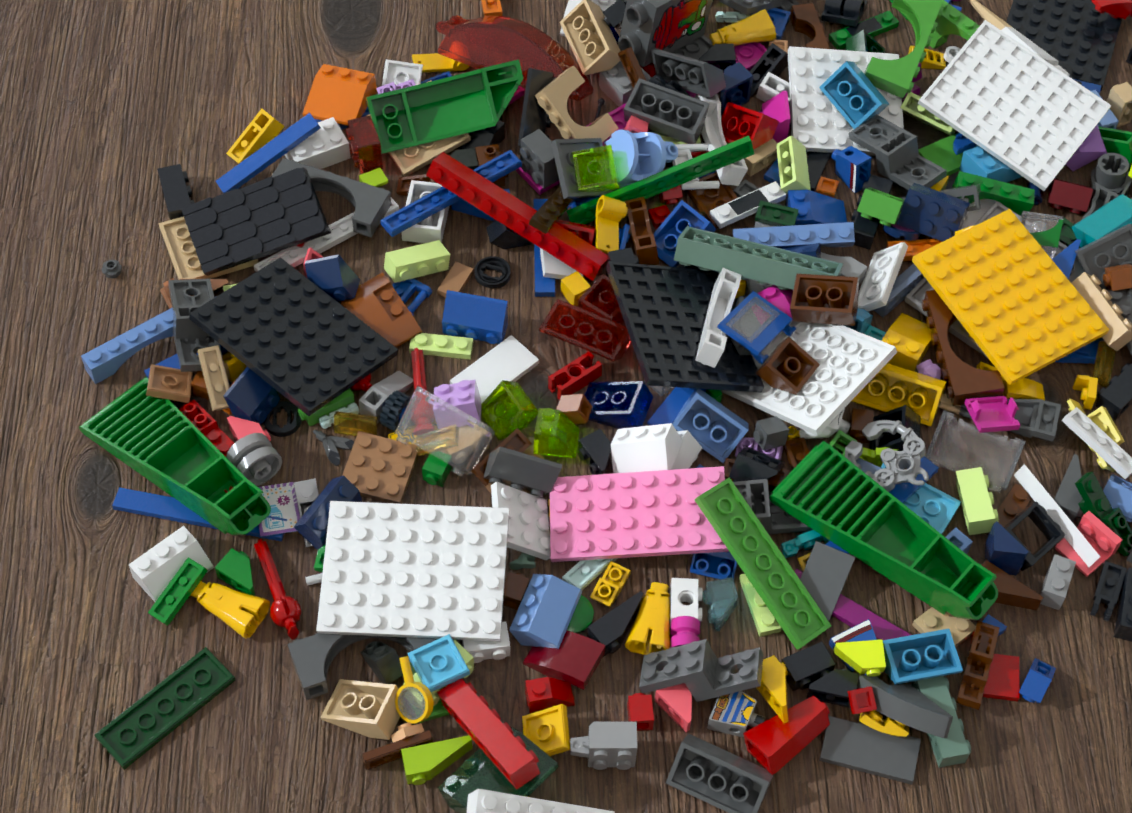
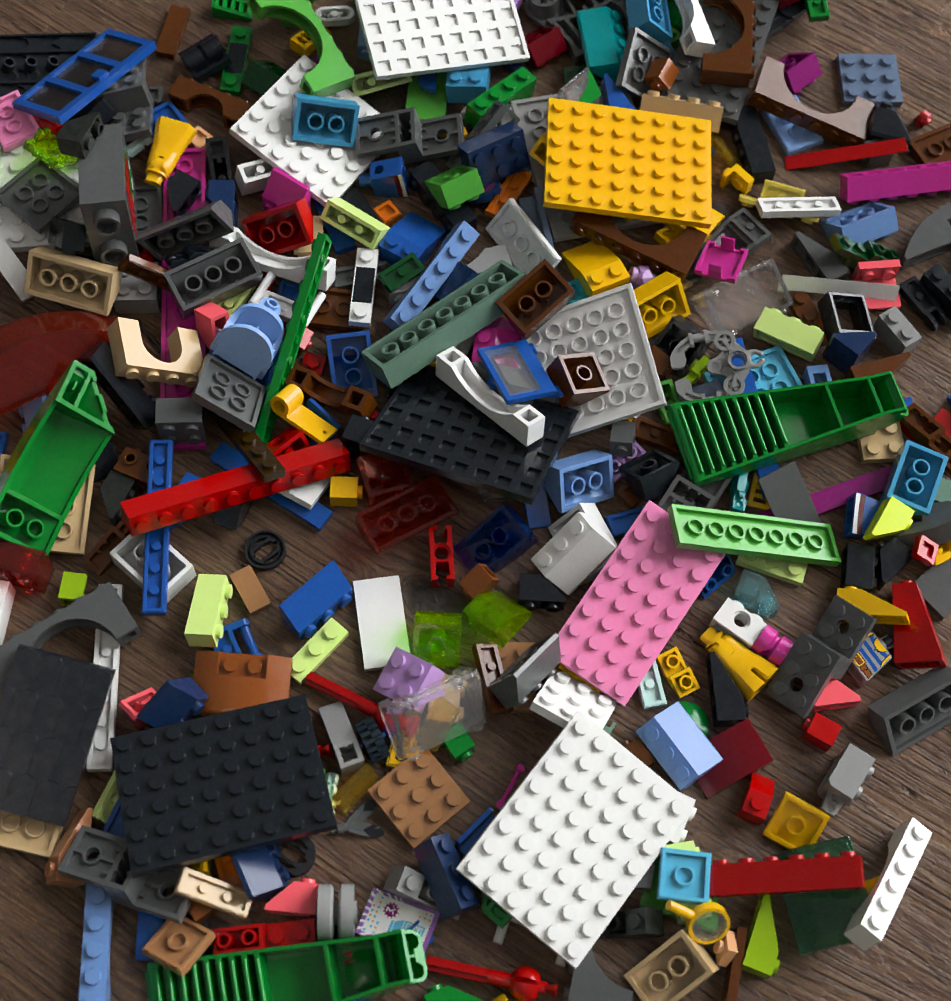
camera: 60 degrees left, 10 degrees up
(596, 169) = (244, 381): clear neon green slope -> none

